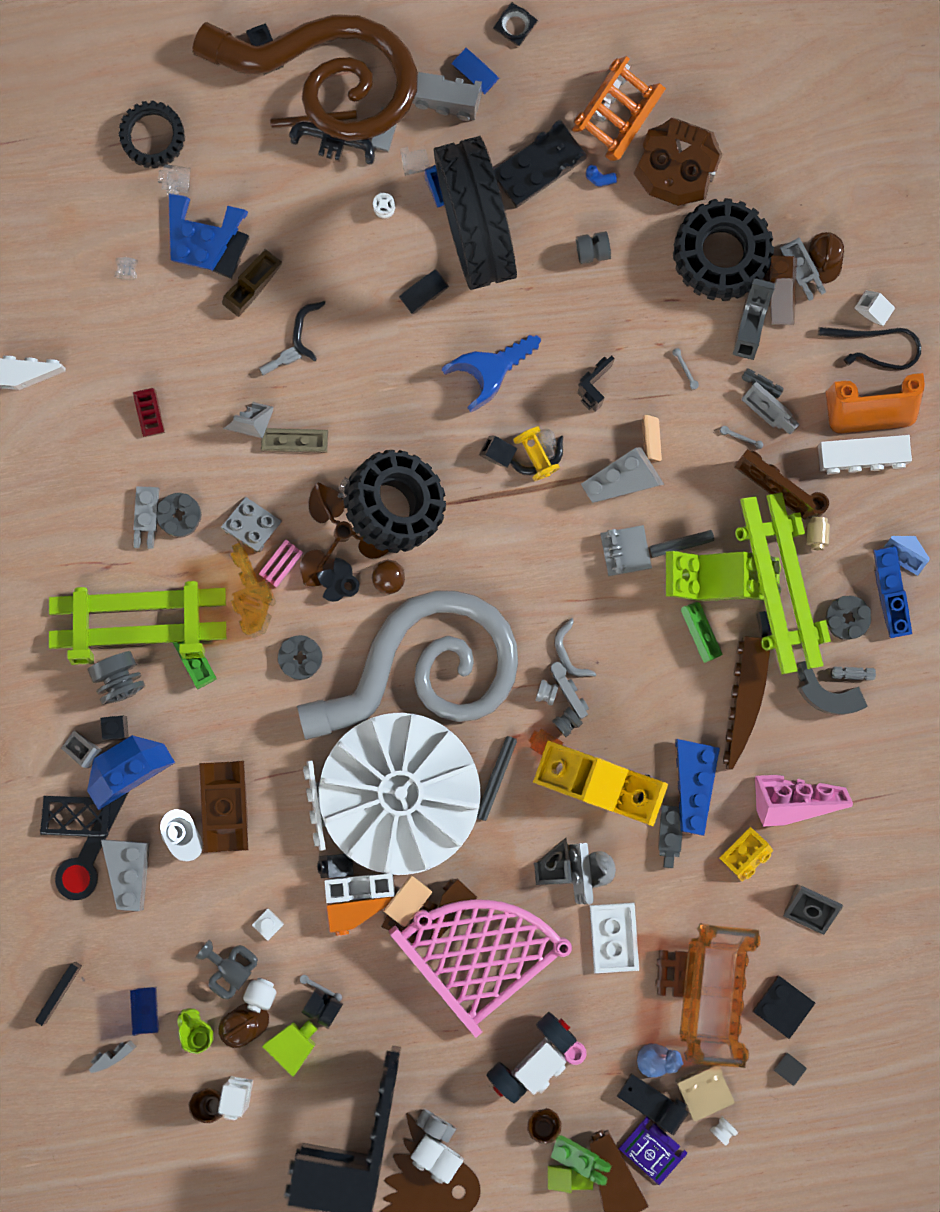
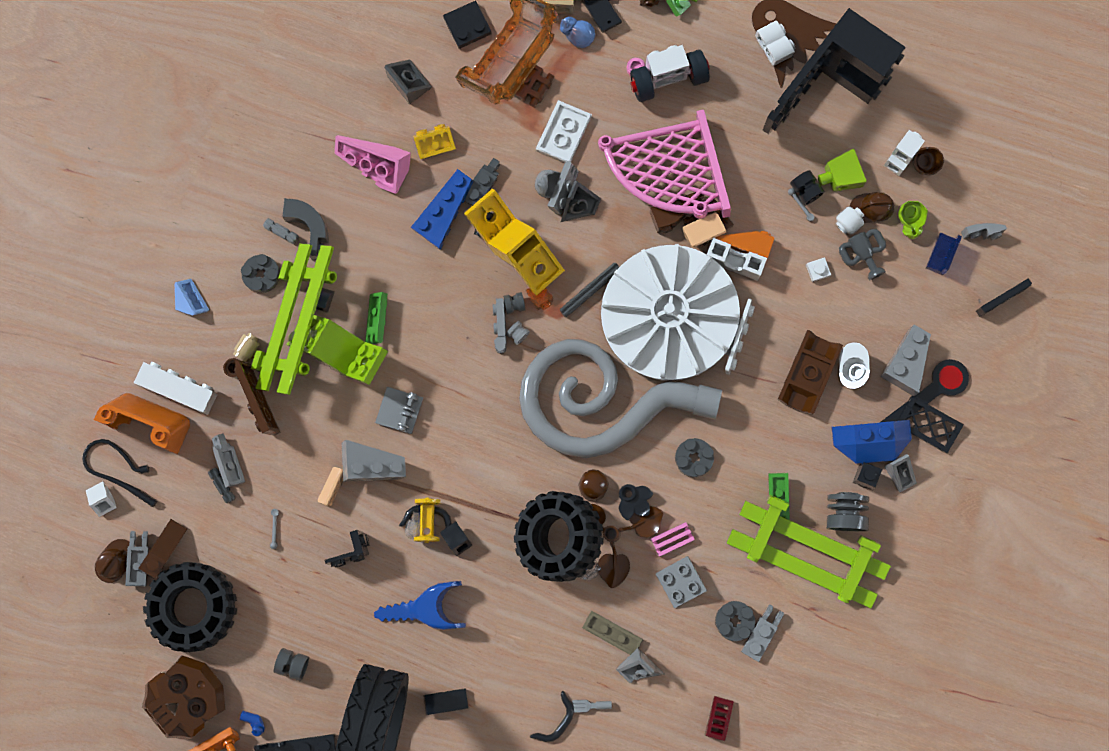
camera: 150 degrees left, 5 degrees down
(254, 620) = (714, 519): clear yellow piece -> none
(335, 866) = (747, 285): black bracket -> none
(435, 1126) = (764, 65): light grey piece -> none
(544, 1126) = (685, 26): reddish brown hair -> none
(563, 654) = (490, 355): light grey animal -> none
(682, 543) = (353, 393): dark grey axle -> none
(725, 430) = (271, 464): light grey hinge -> none
(748, 696) = (369, 252): reddish brown slope -> none
(753, 318) = (200, 538): dark grey arch -> none
(891, 592) = (218, 274): blue slope -> none

